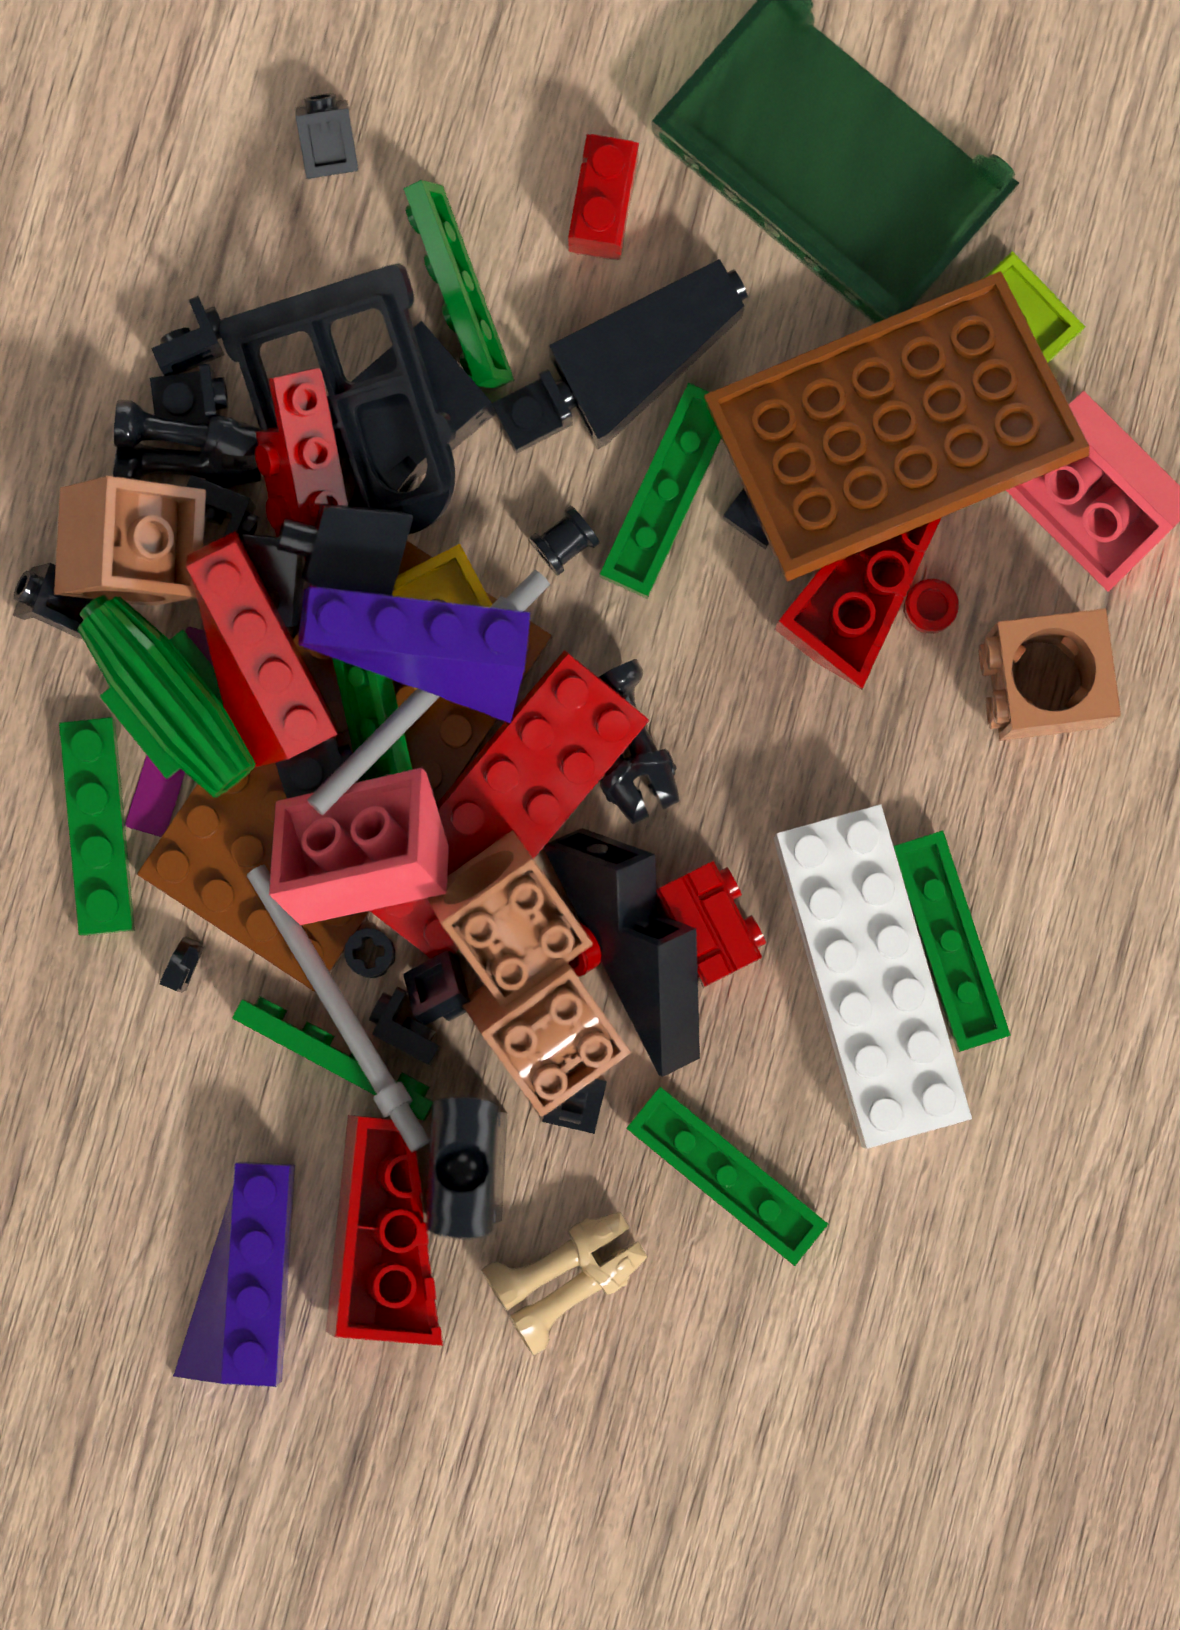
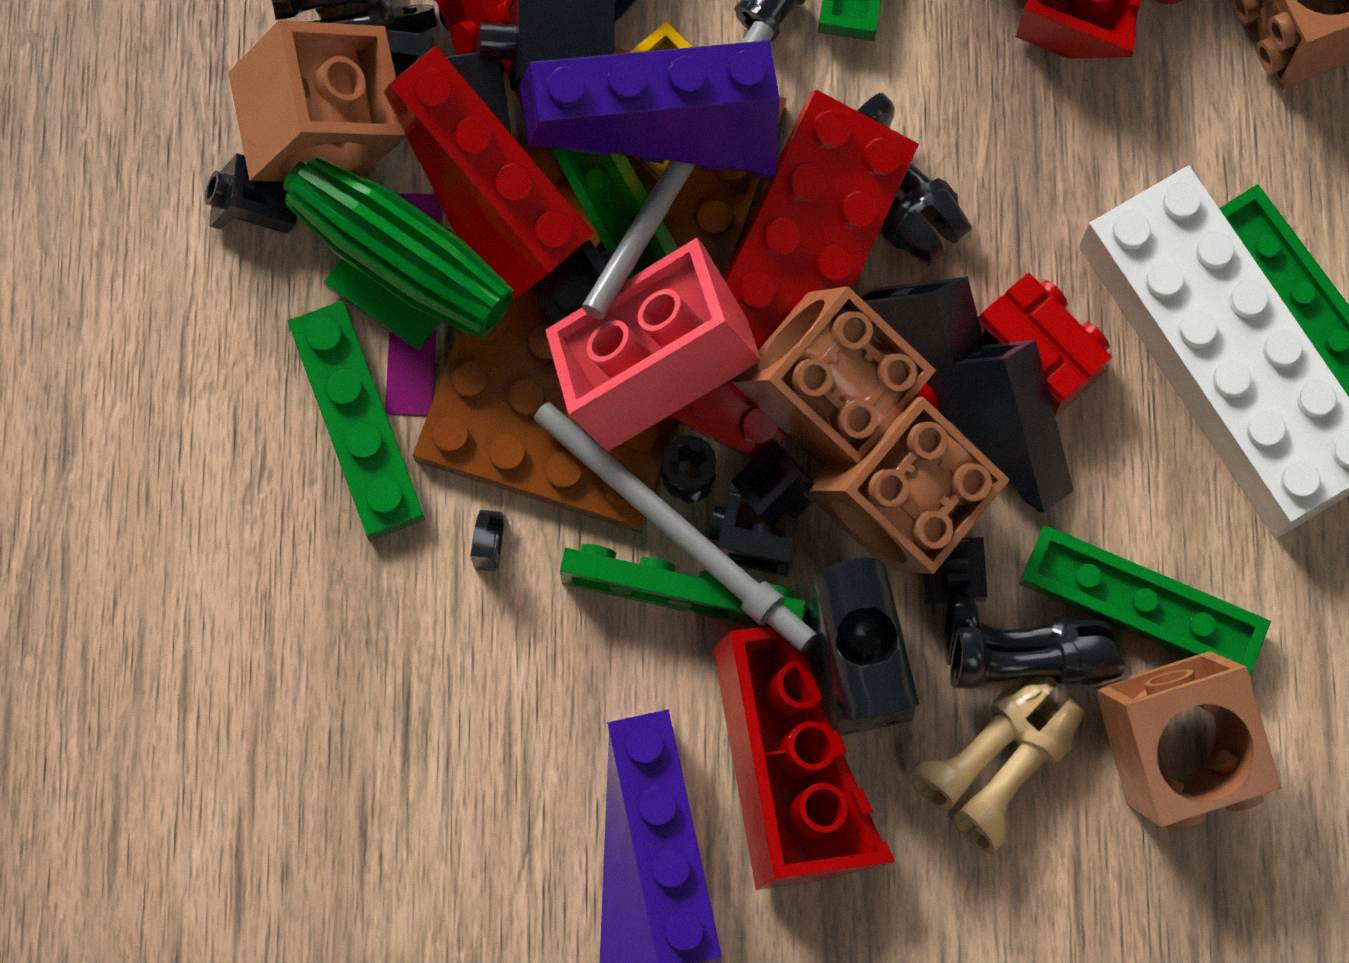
camera: 15 degrees left, 10 degrees down
(646, 1200) = (1065, 649): none -> black piece
(718, 1268) = (1241, 760): none -> nougat brick

